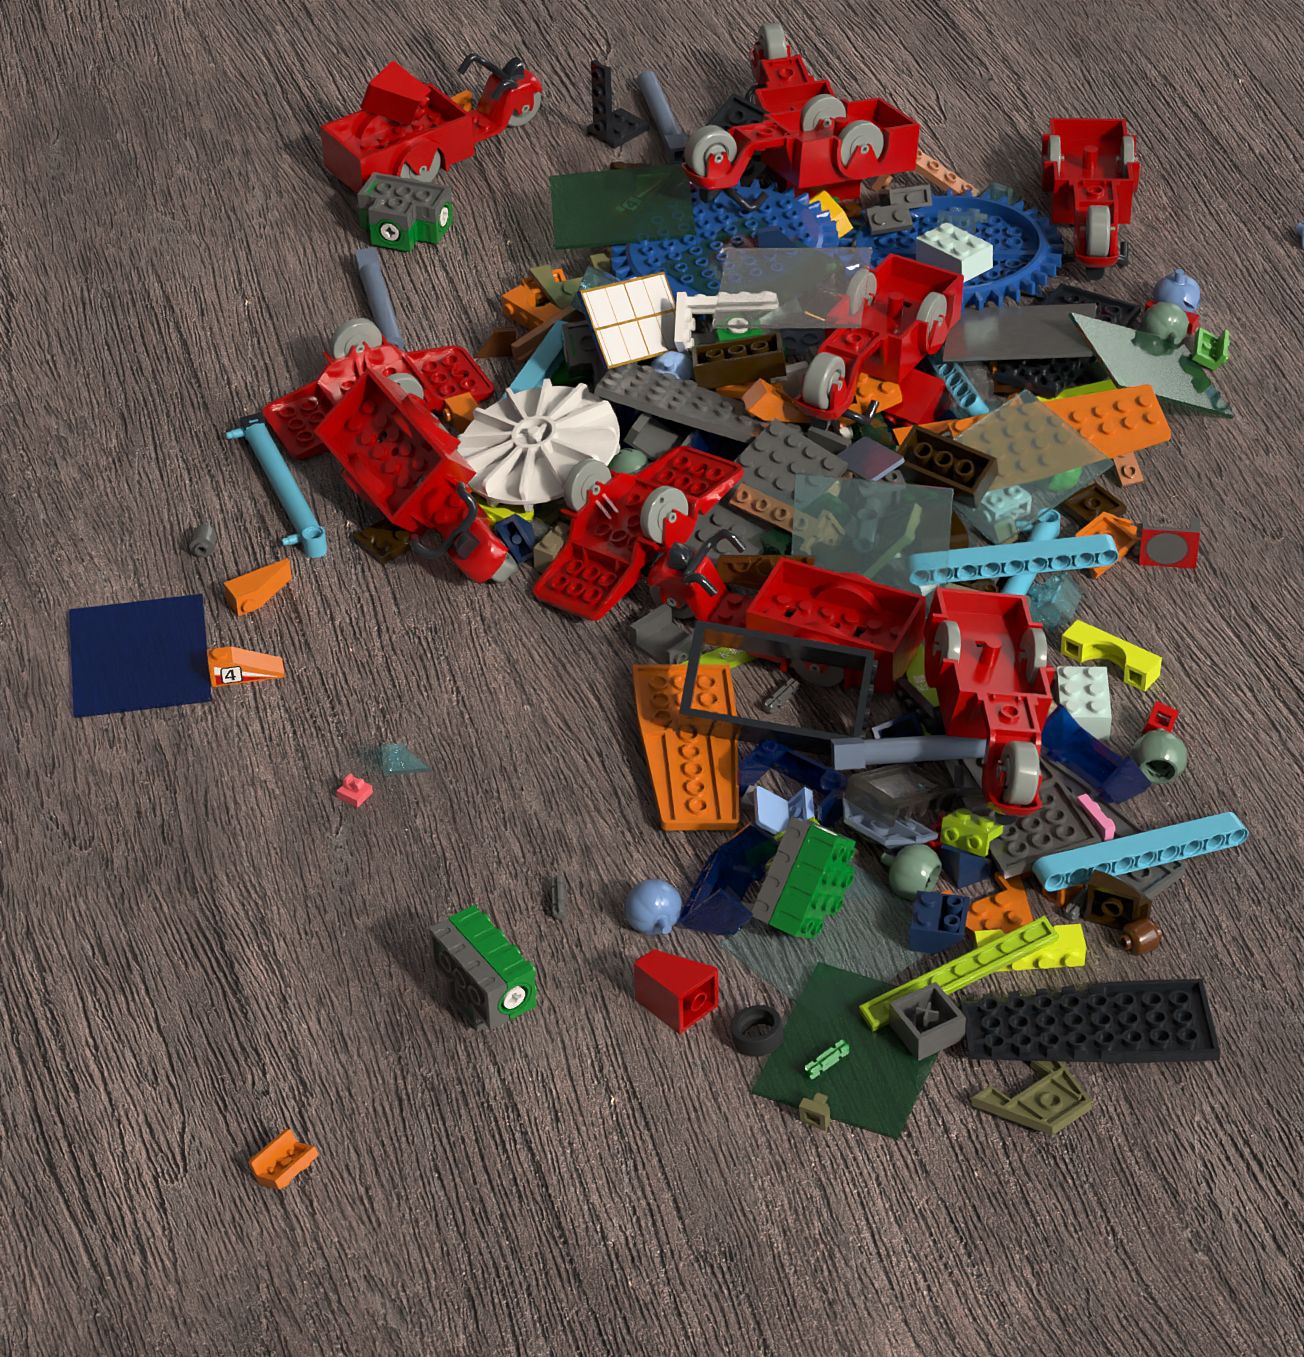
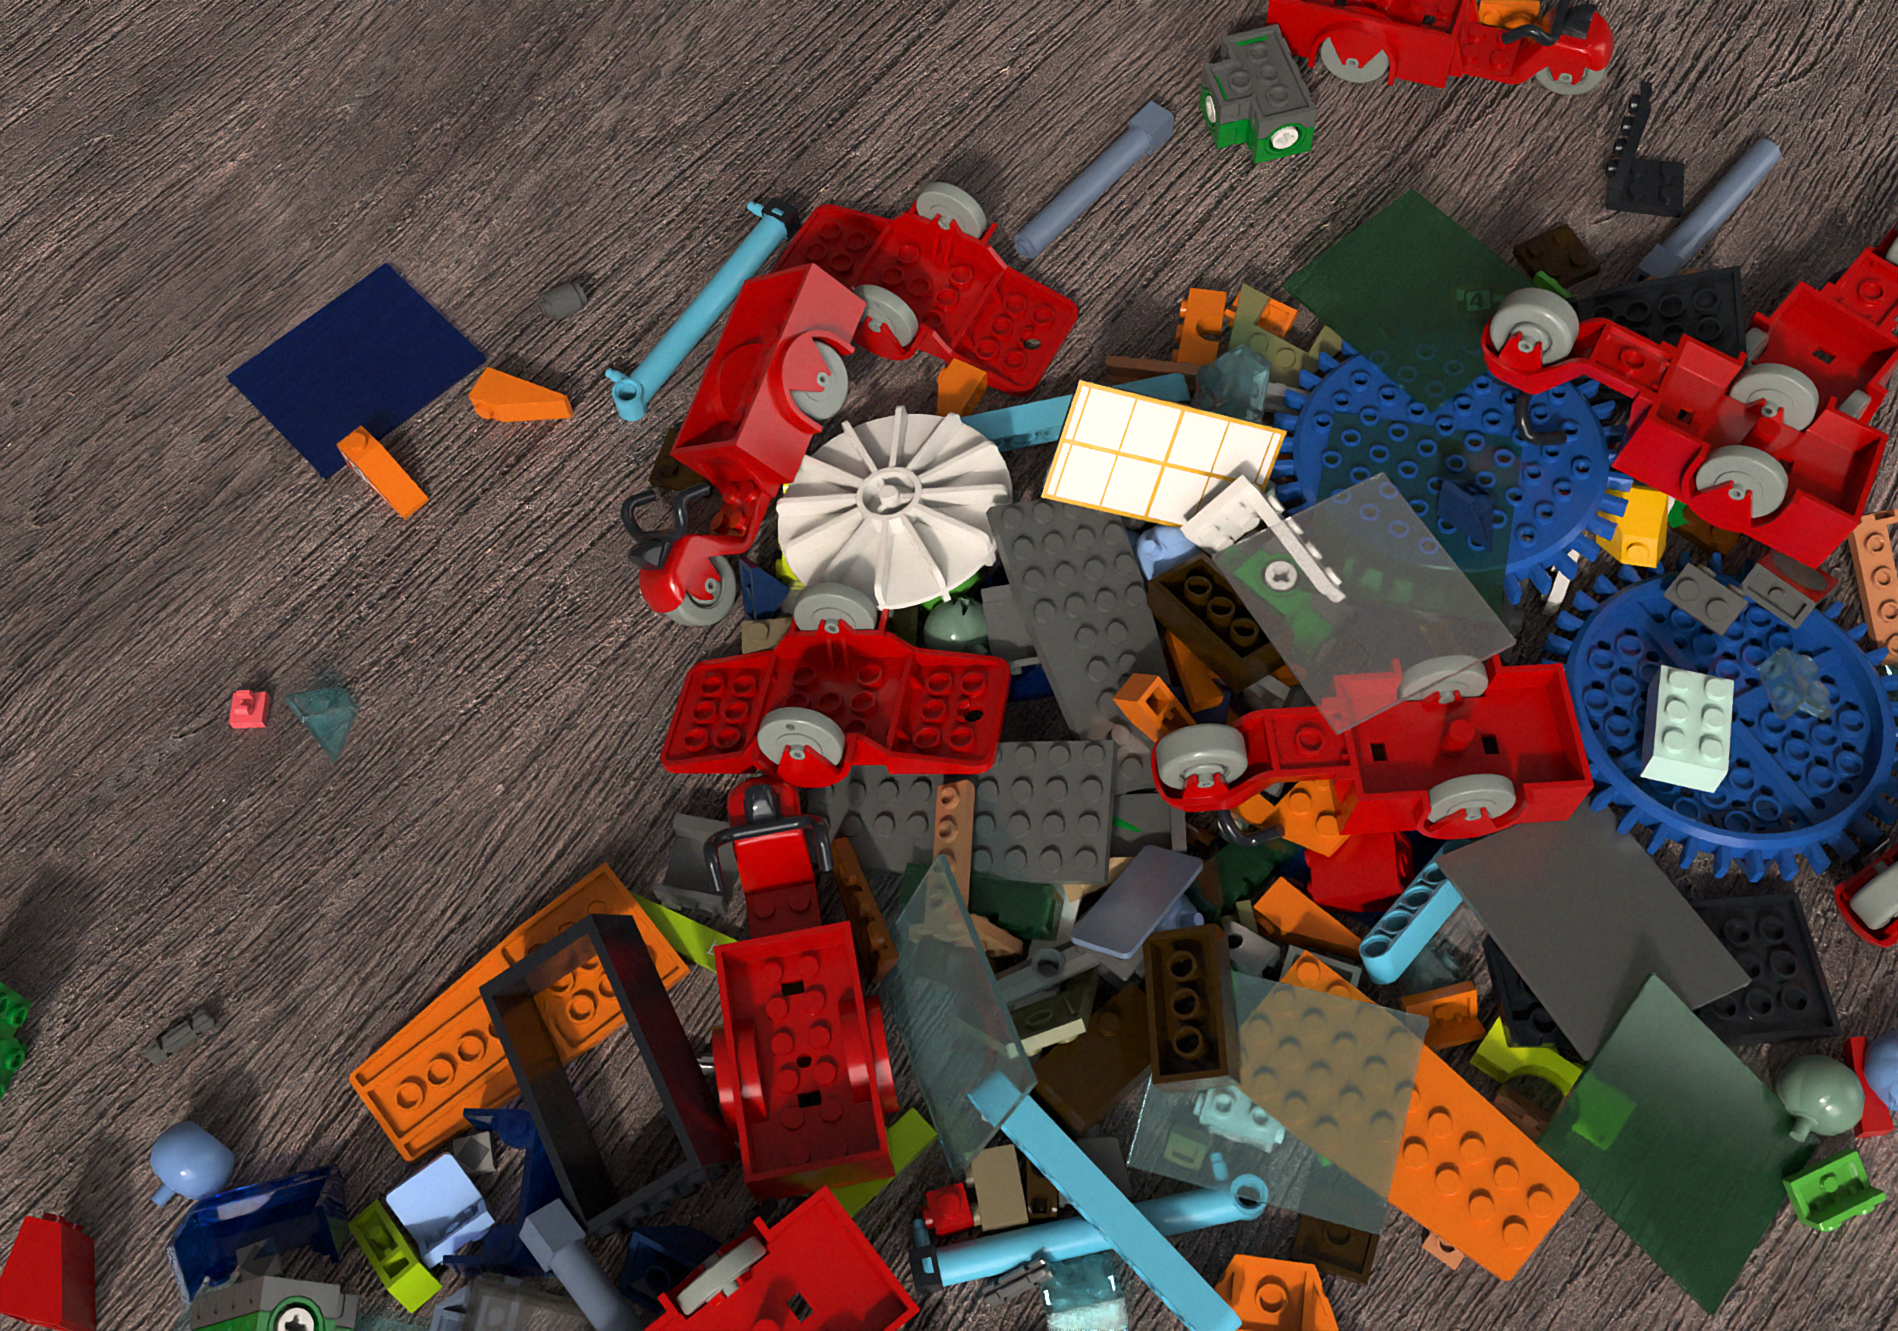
camera: 60 degrees right, 20 degrees up
(499, 343) = (1120, 339): reddish brown slope -> none

